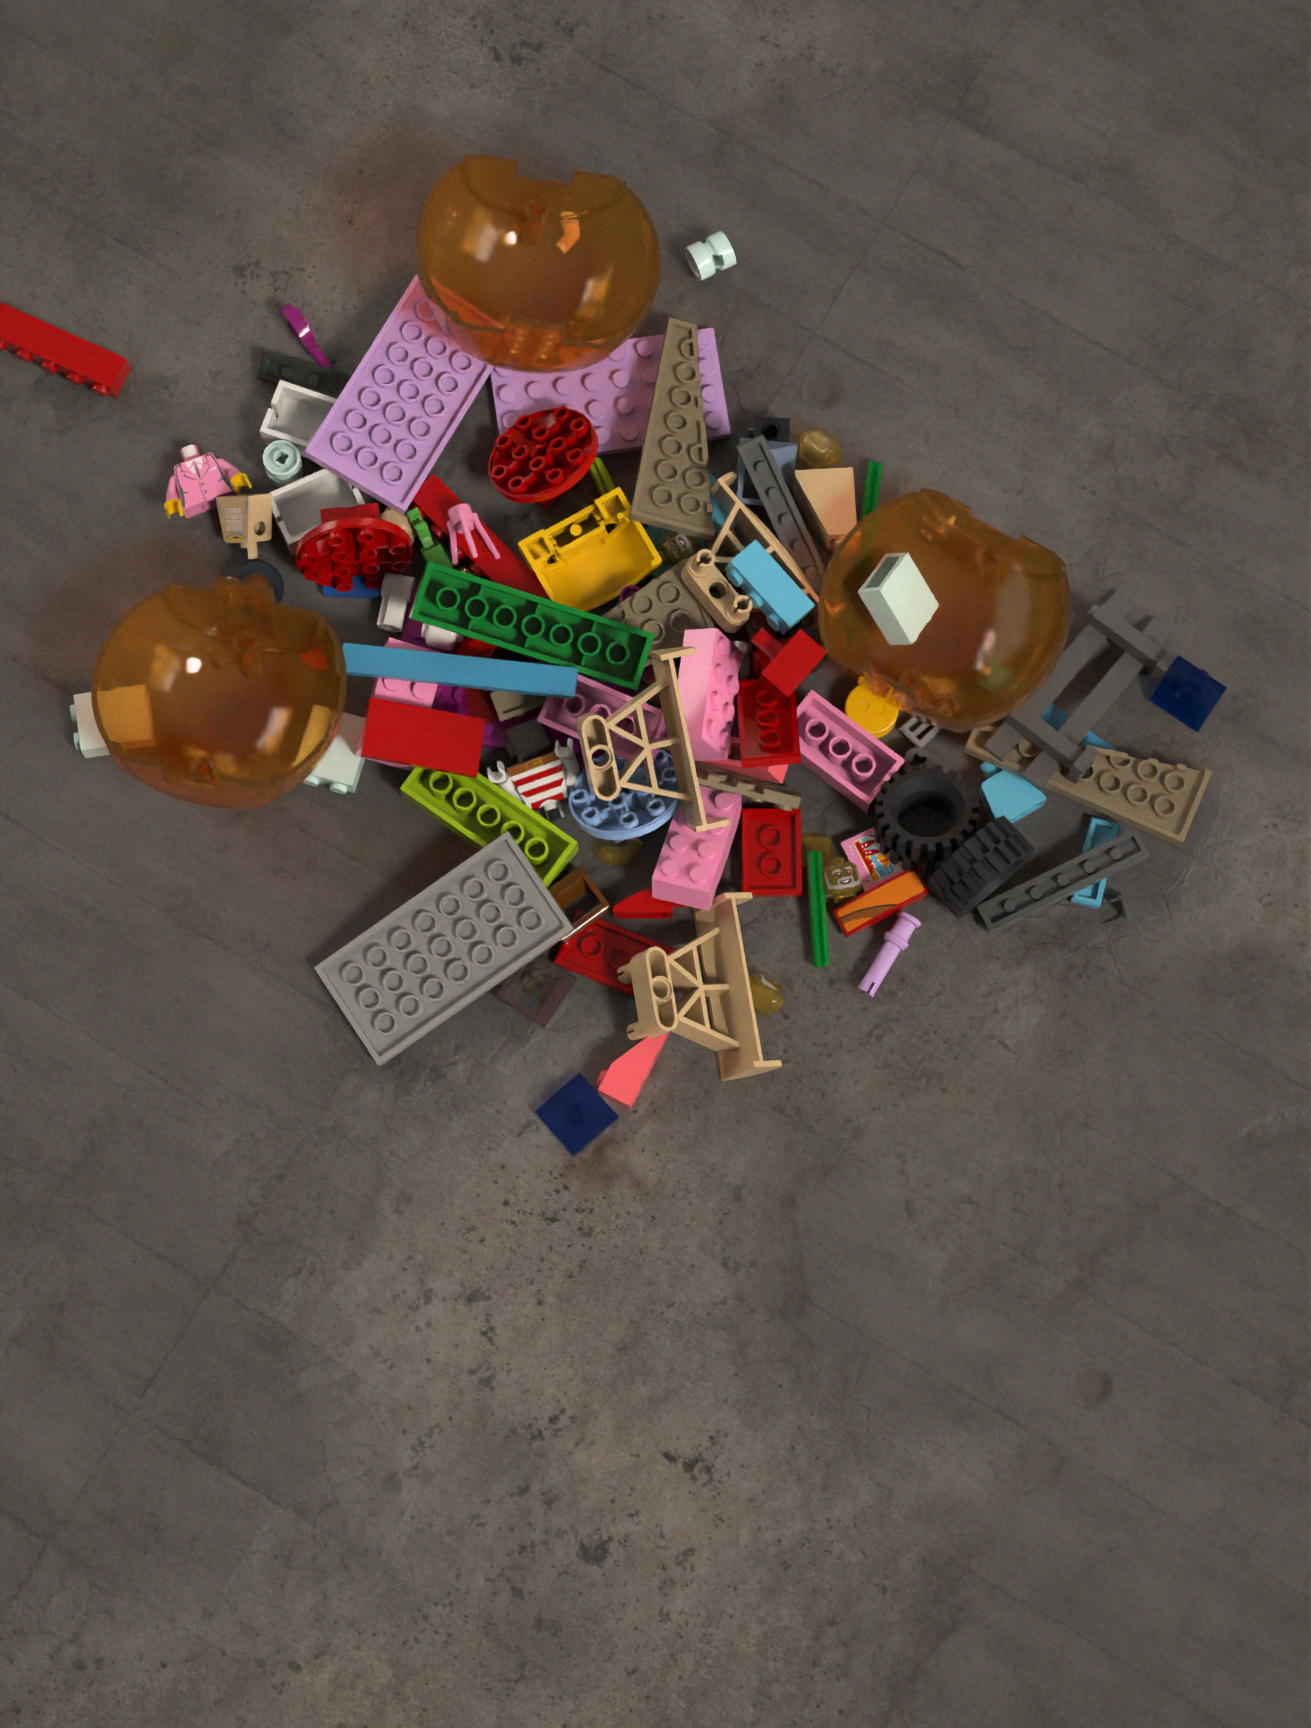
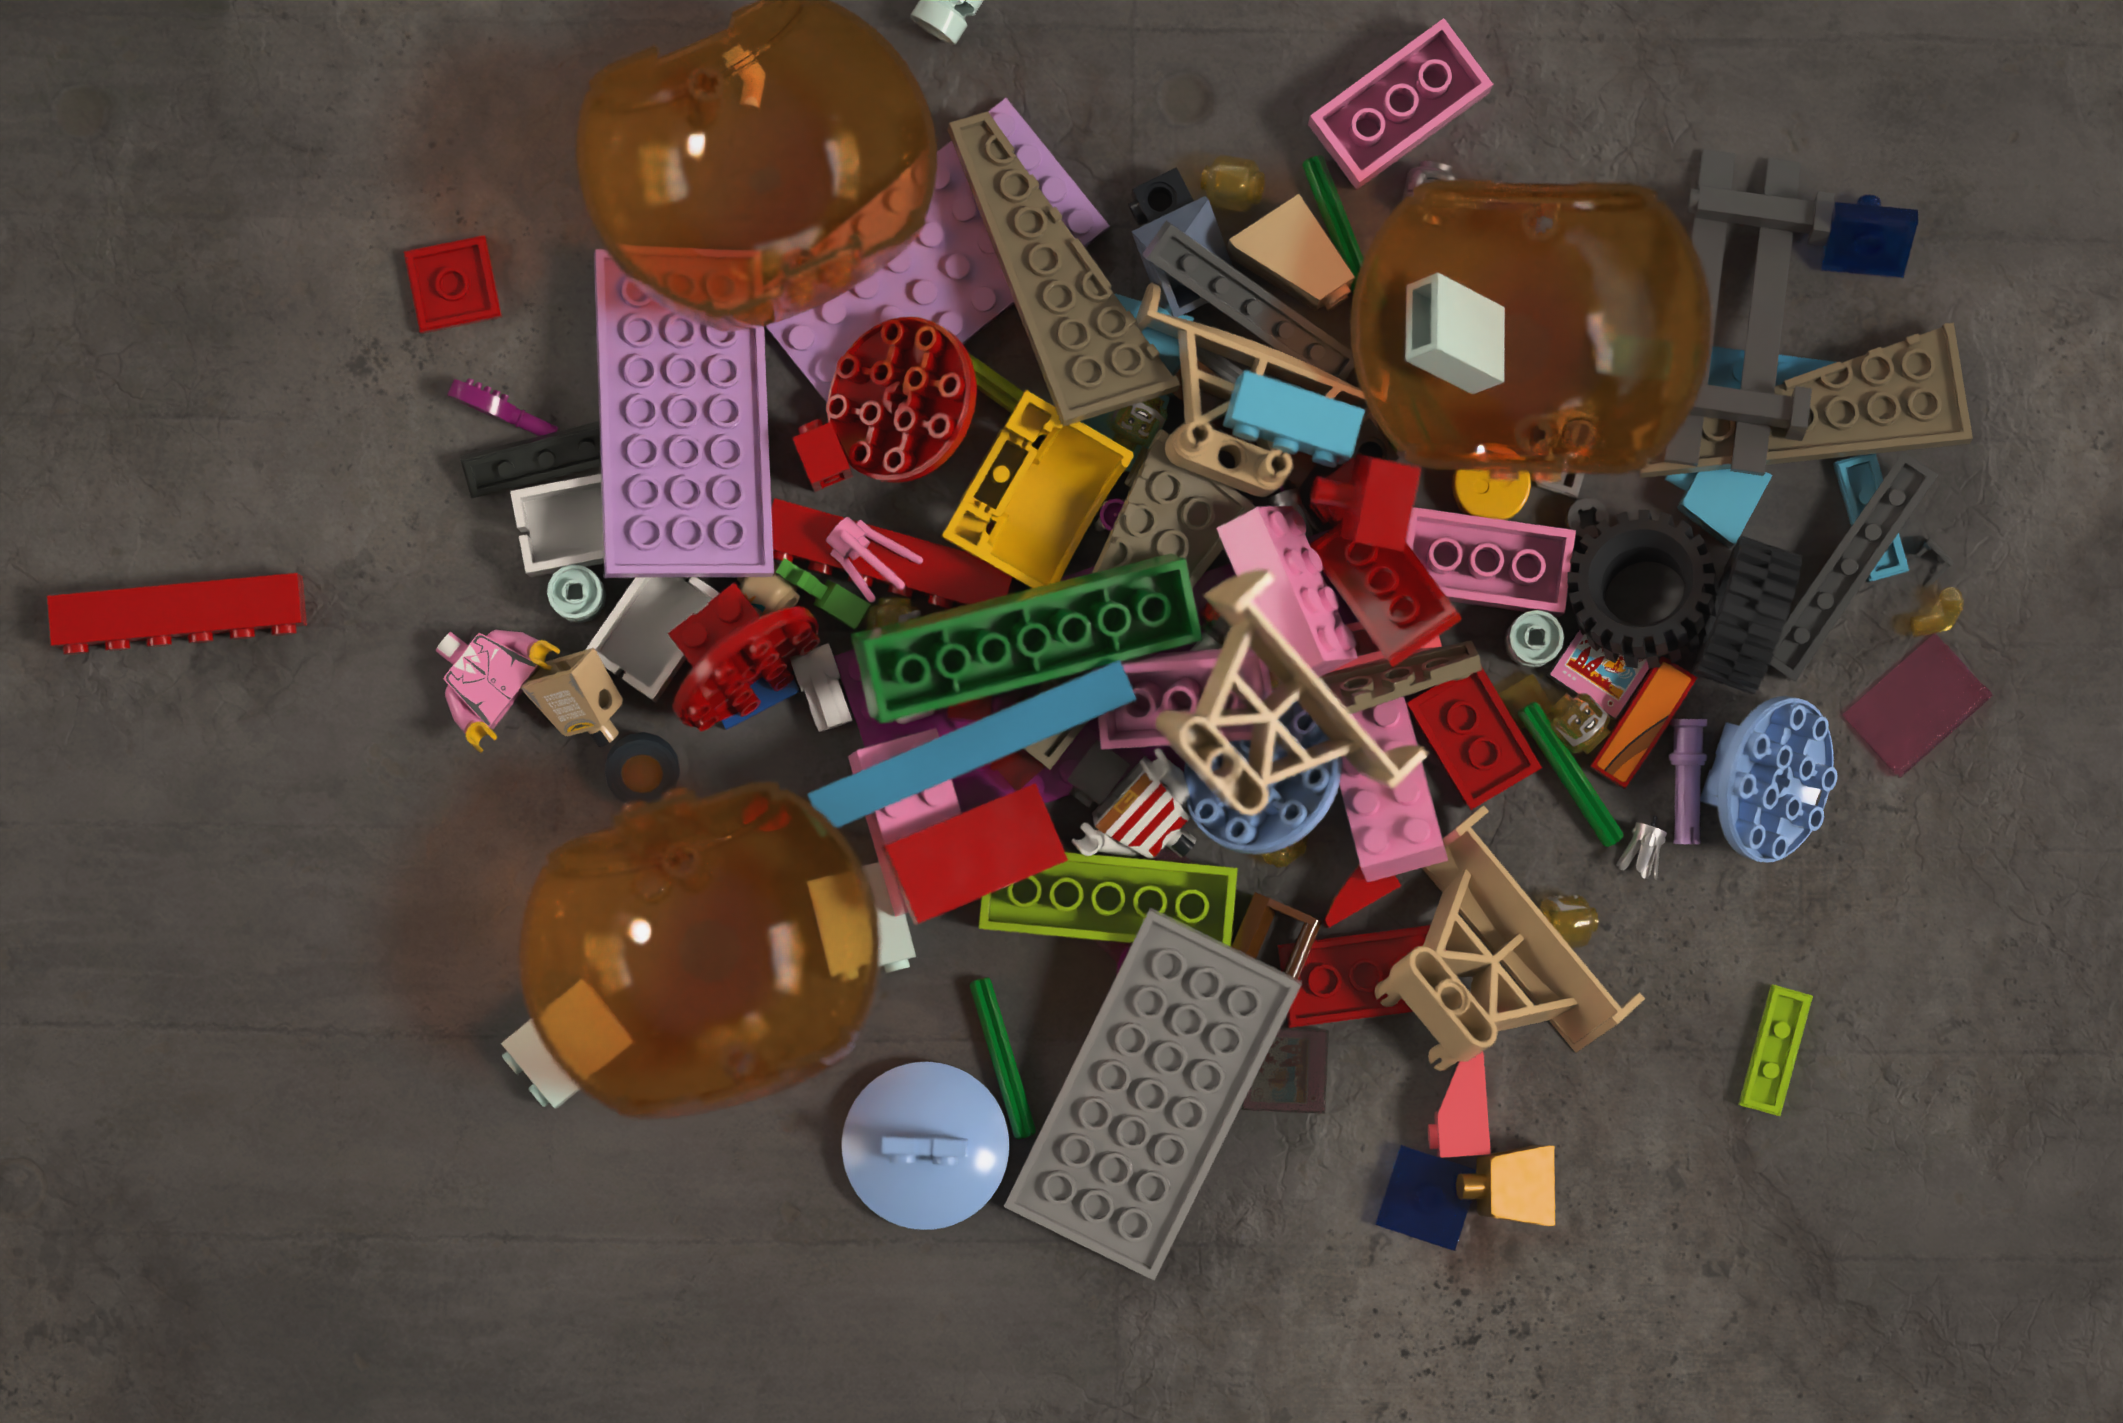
camera: 35 degrees left, 10 degrees up
(289, 904) = (925, 1145): none -> light blue bracket
(322, 254) = (453, 284): none -> red tile
(368, 880) = (1002, 1058): none -> green axle
(476, 465) = (821, 454): none -> red brick
(632, 1135) = (1513, 1185): none -> torso
(837, 977) = (1649, 841): none -> flat silver piece
(842, 814) = (1534, 639): none -> light aqua wheel
(846, 1150) = (1775, 1050): none -> lime tile
(941, 977) = (1771, 778): none -> light blue bracket
(947, 457) = (1400, 103): none -> bright pink brick
(1058, 992) = (1917, 705): none -> clear pink piece
(1105, 946) = (1943, 615): none -> clear yellow arm

